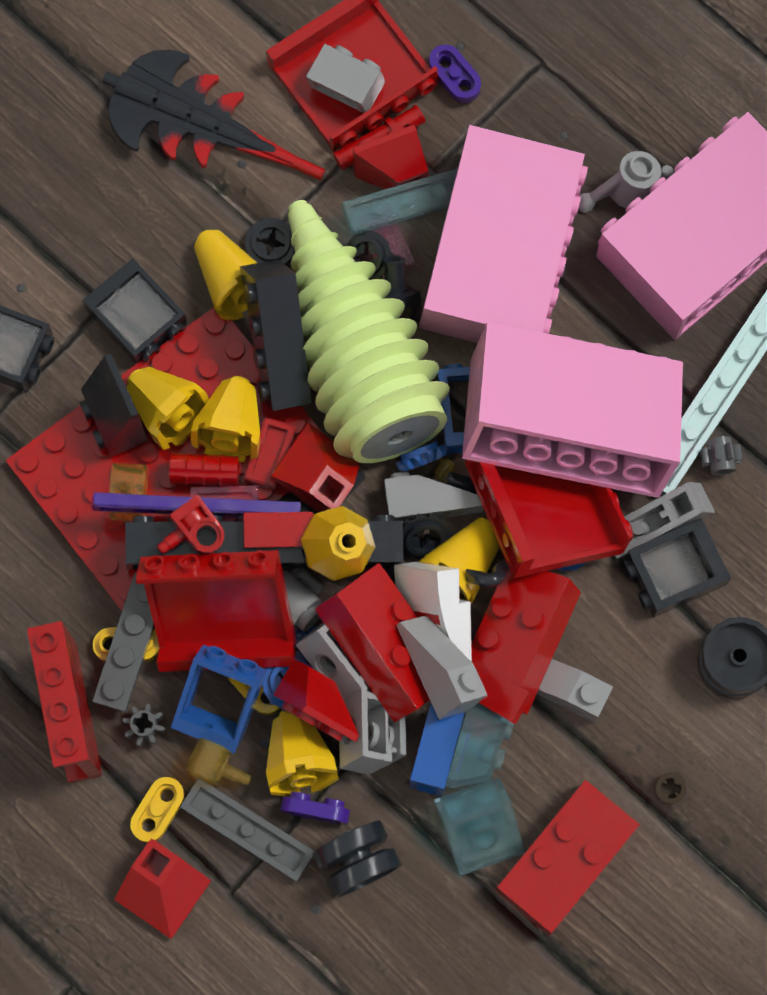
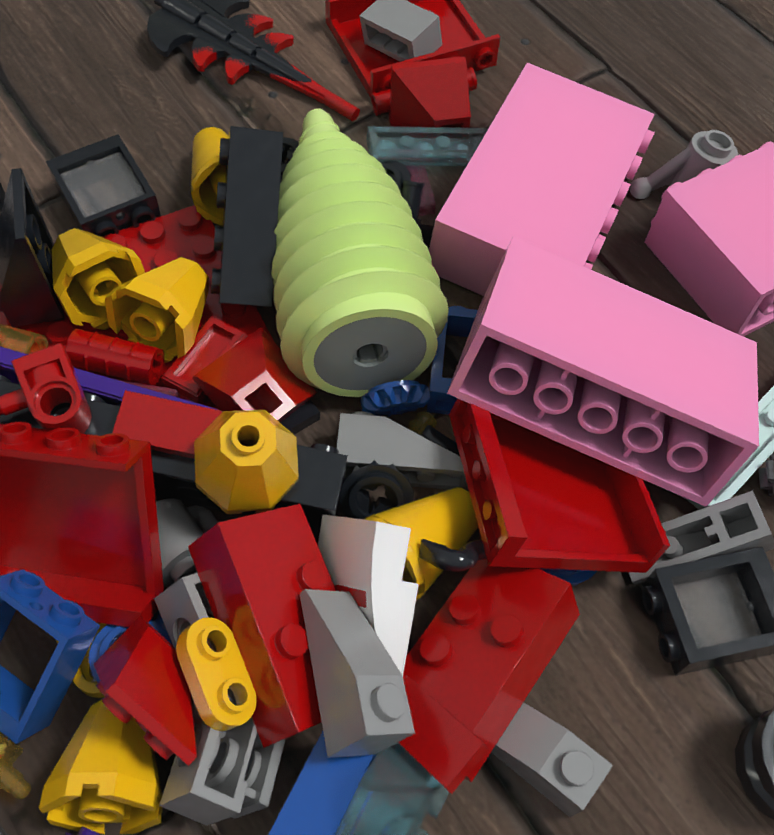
camera: 10 degrees right, 15 degrees down
(357, 685) = (213, 673): none -> yellow plate
(456, 74) = (516, 51): dark purple plate -> none

